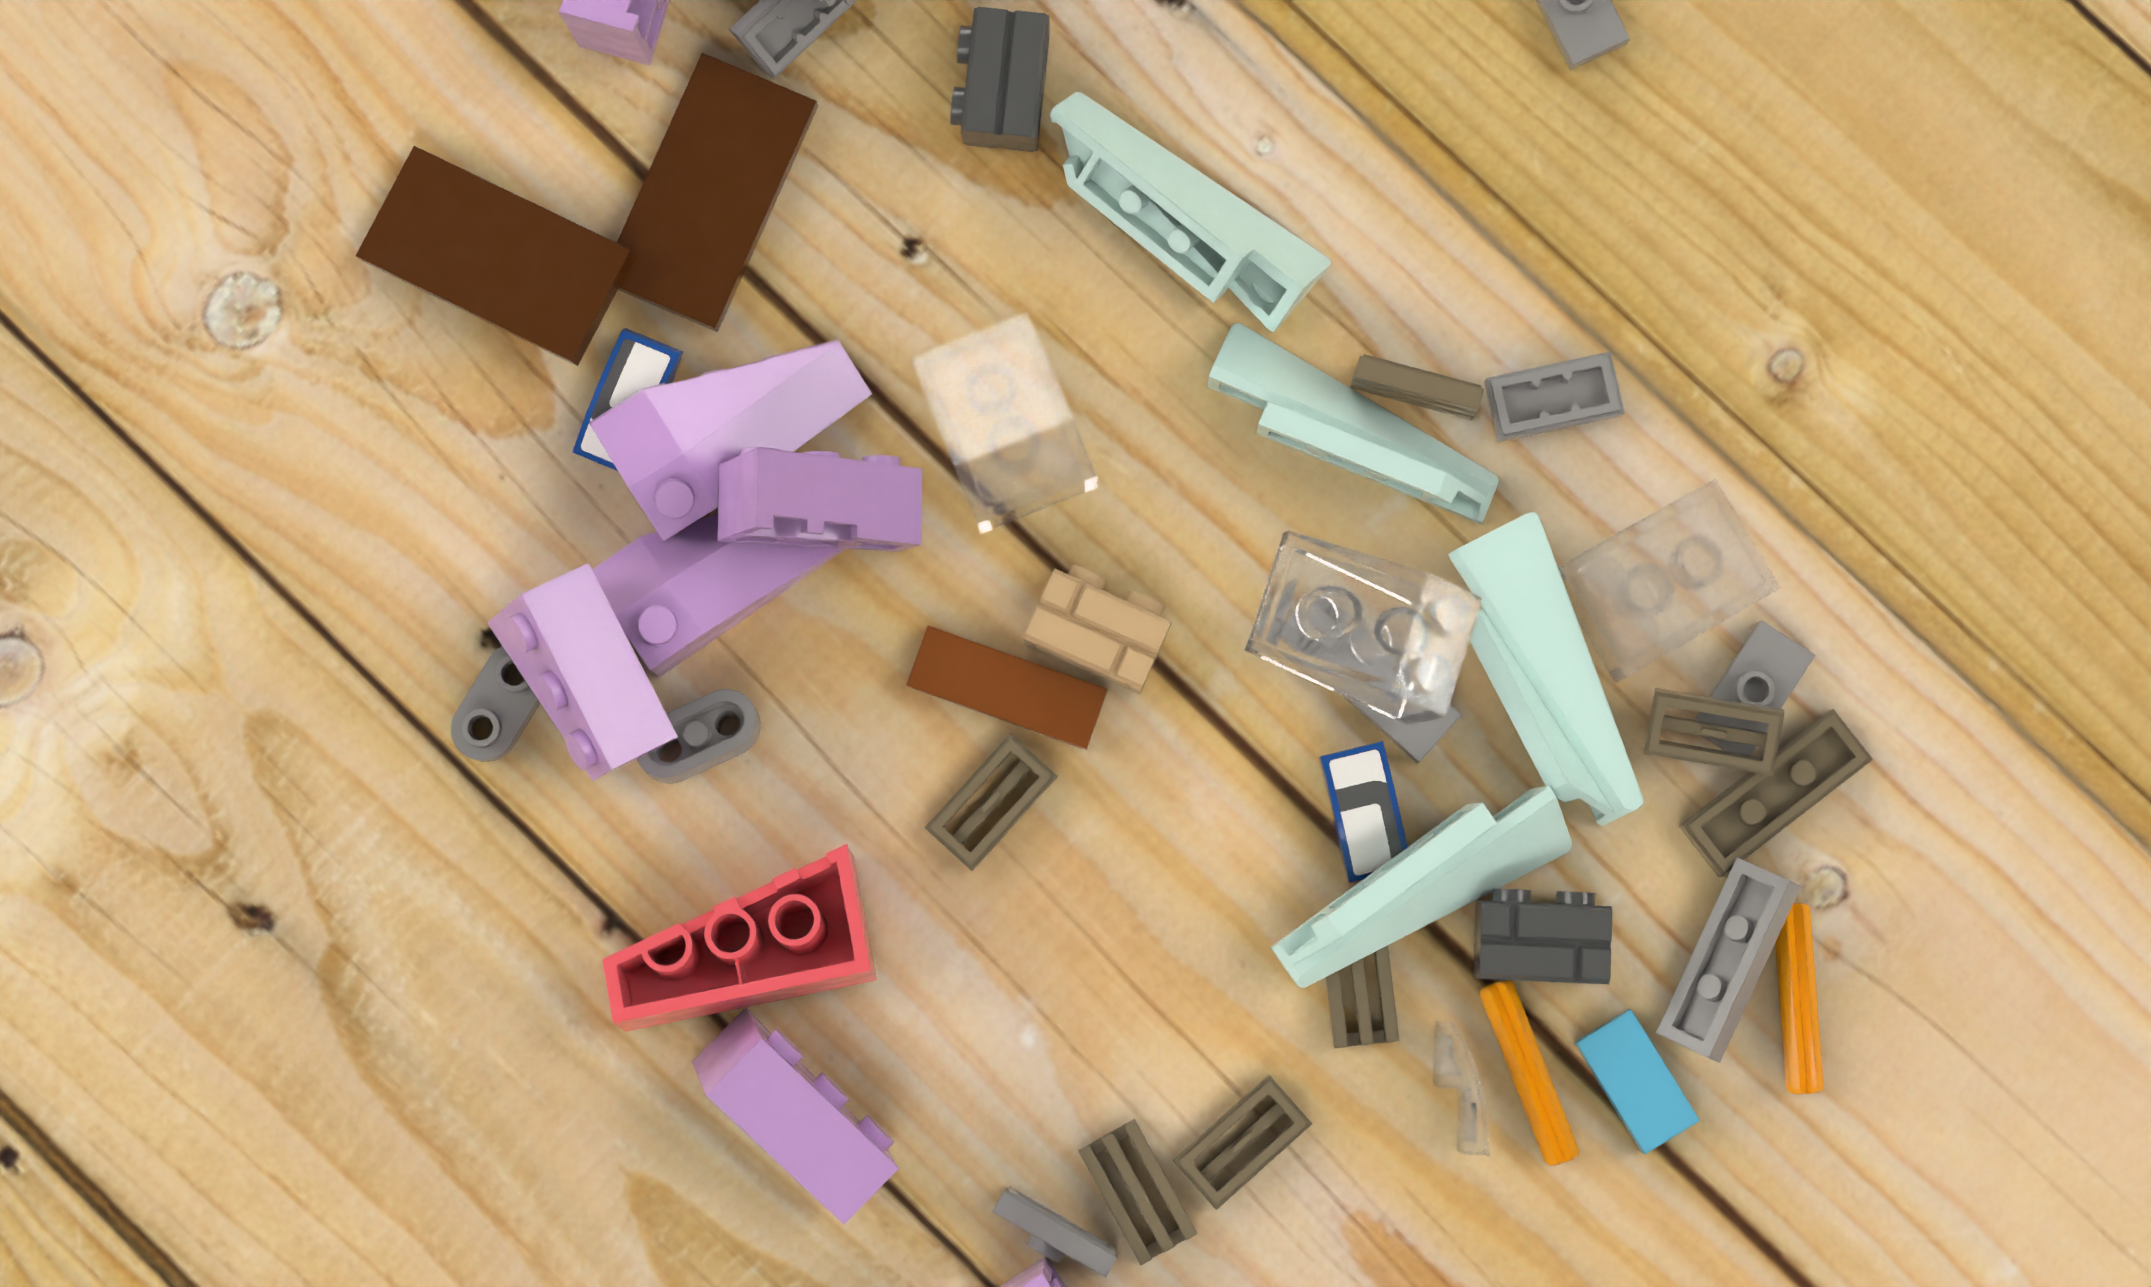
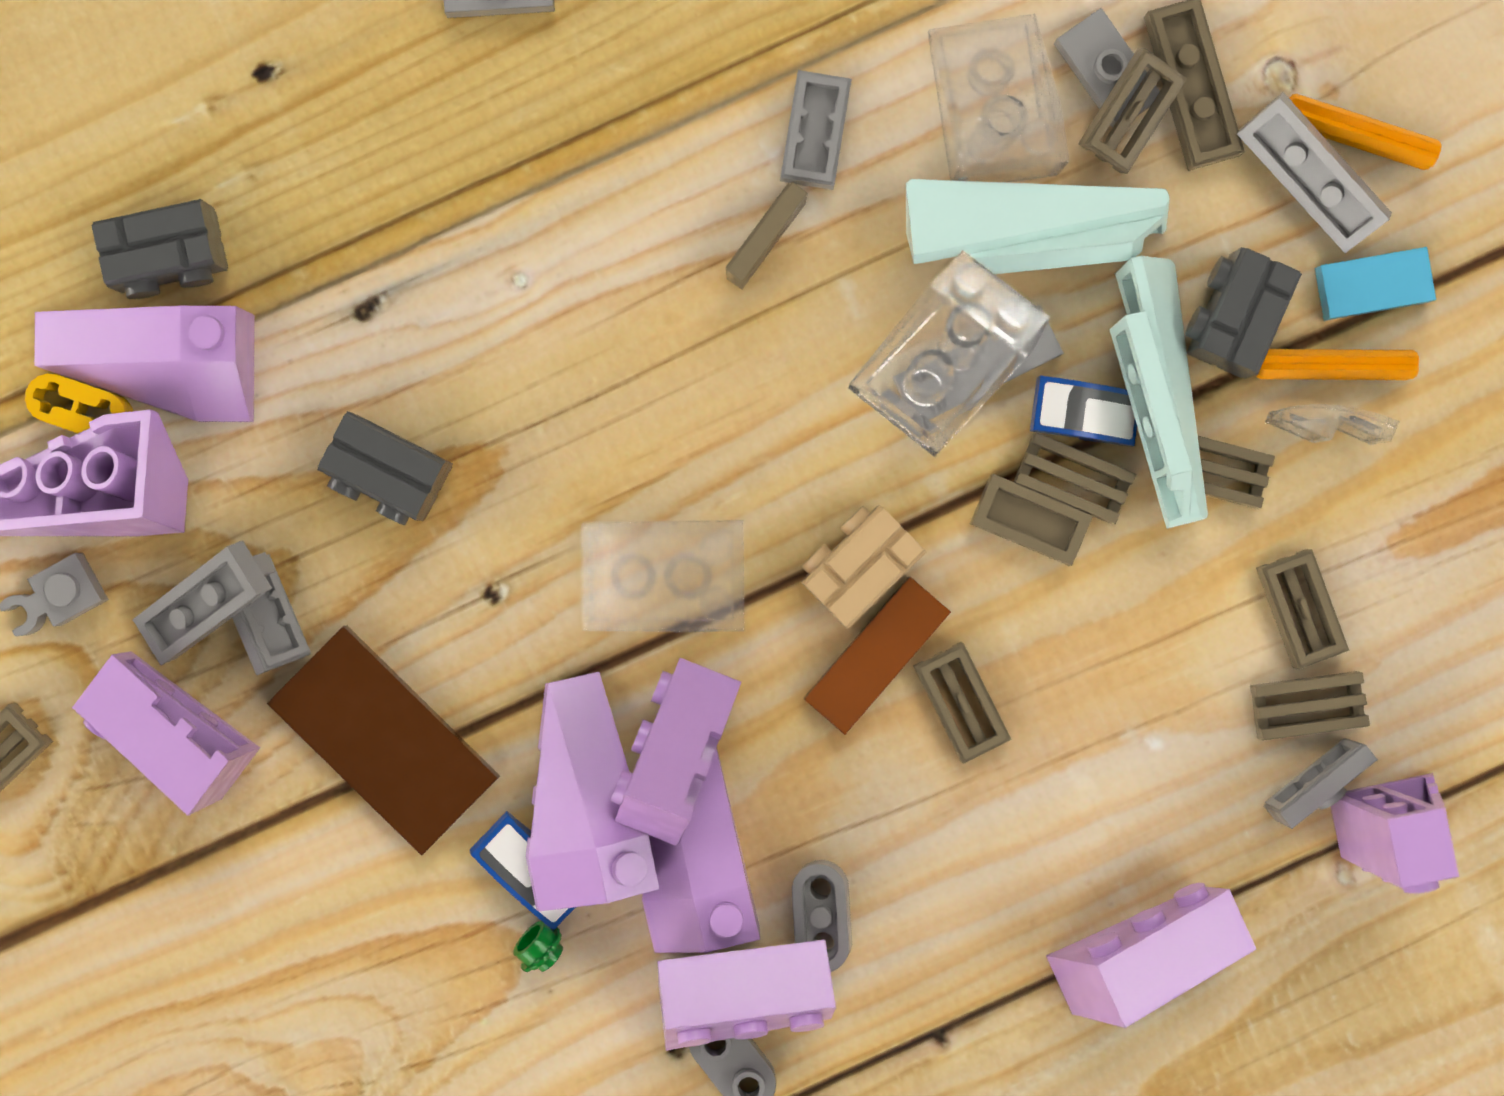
camera: 80 degrees left, 5 degrees up
(496, 255) = (369, 933): reddish brown tile -> none
(547, 443) = (538, 947): none -> green plate
(765, 947) = (1013, 929): coral wedge -> none
(1184, 215) = (551, 366): light aqua wedge -> none
(1222, 799) = (1031, 519): none -> dark tan tile
(1288, 775) = (1116, 495): none -> dark tan tile
(1345, 428) = (772, 306): light aqua wedge -> none

